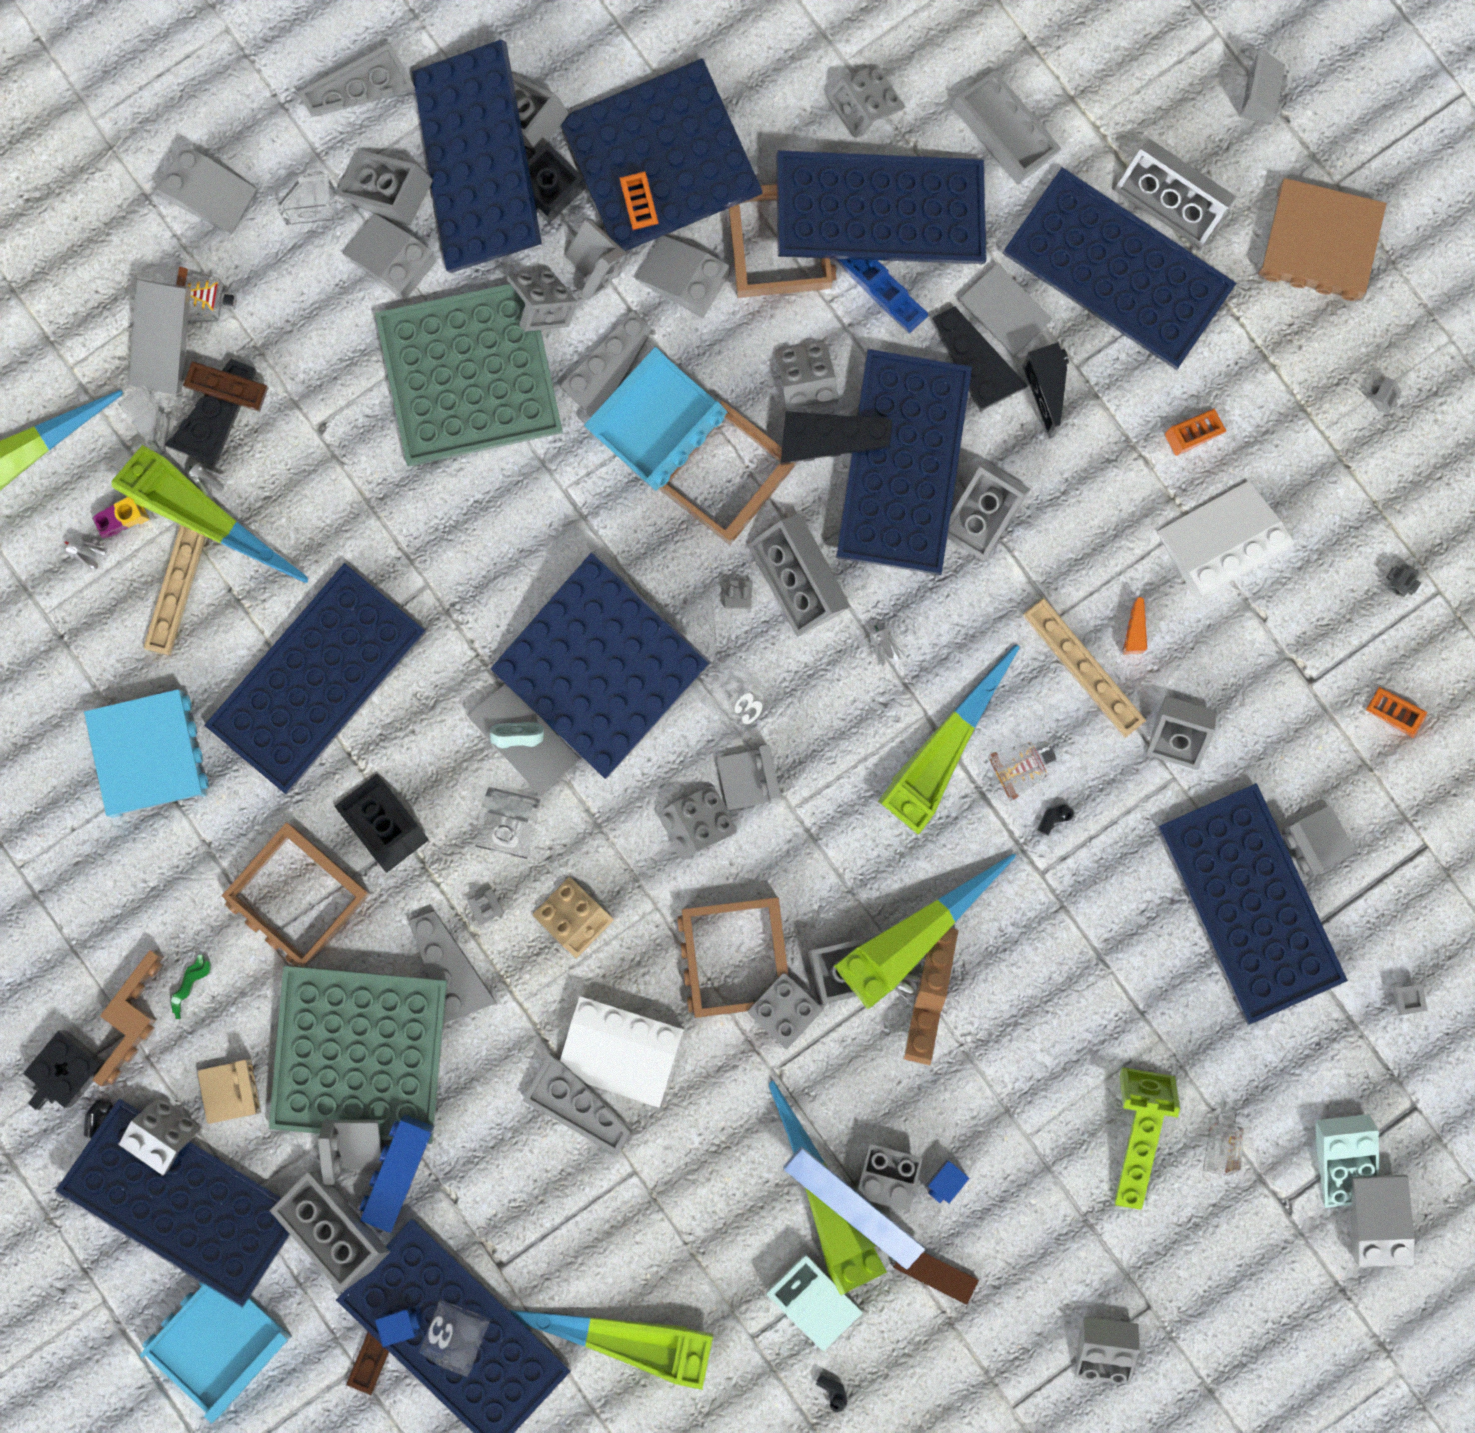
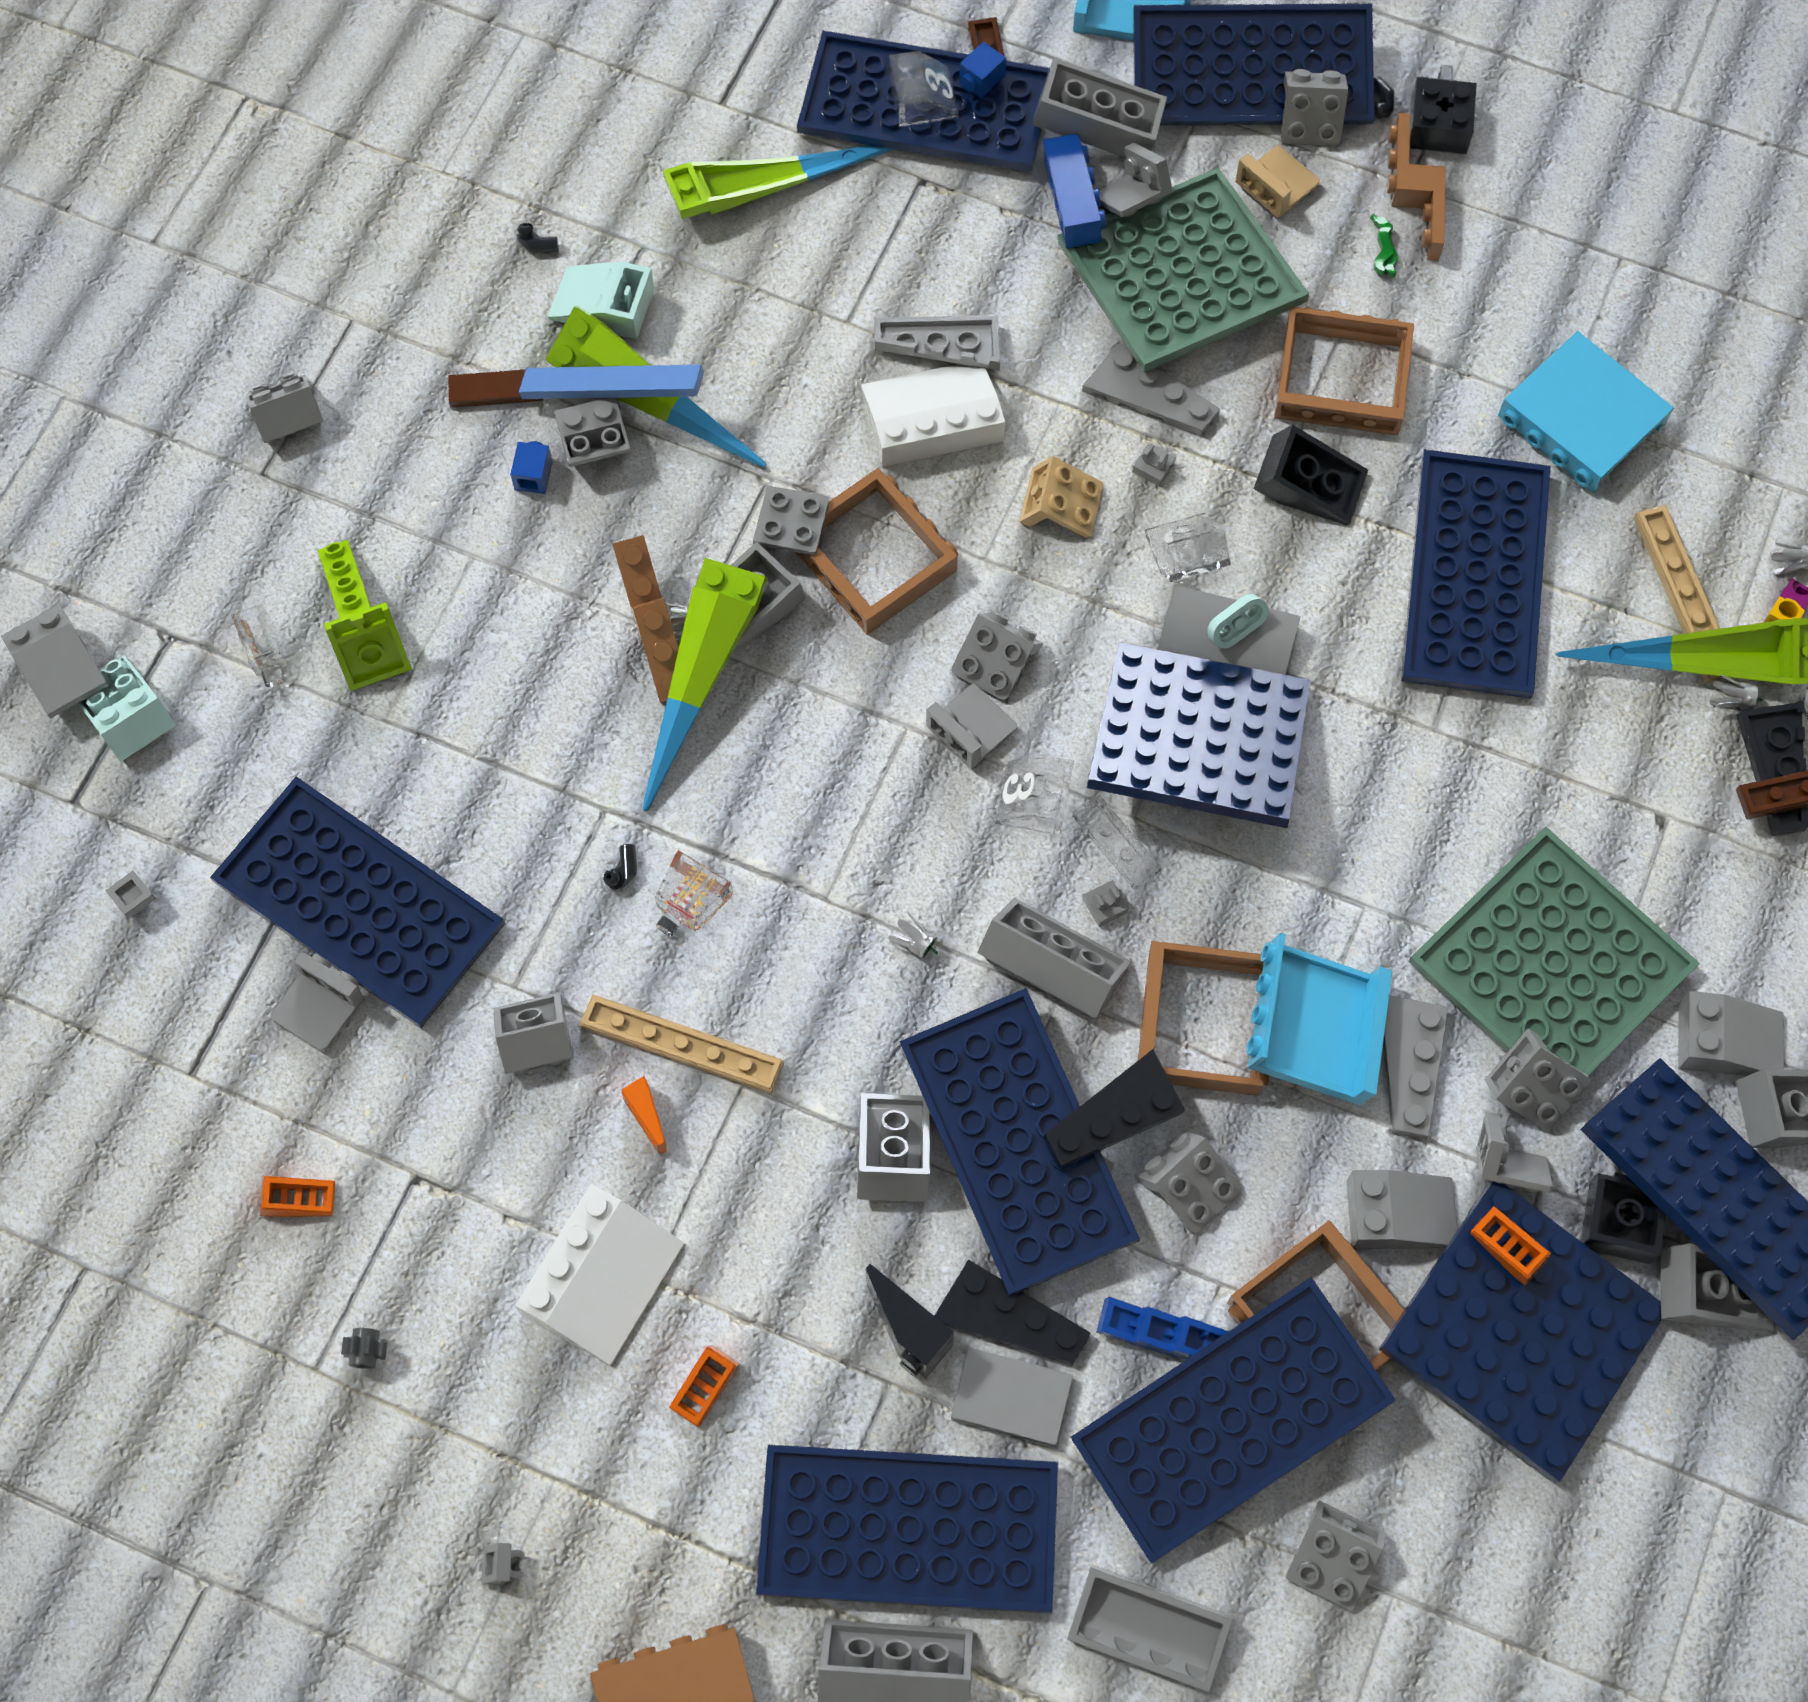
camera: 150 degrees right, 15 degrees down
(923, 779) = (786, 820): lime plate -> none

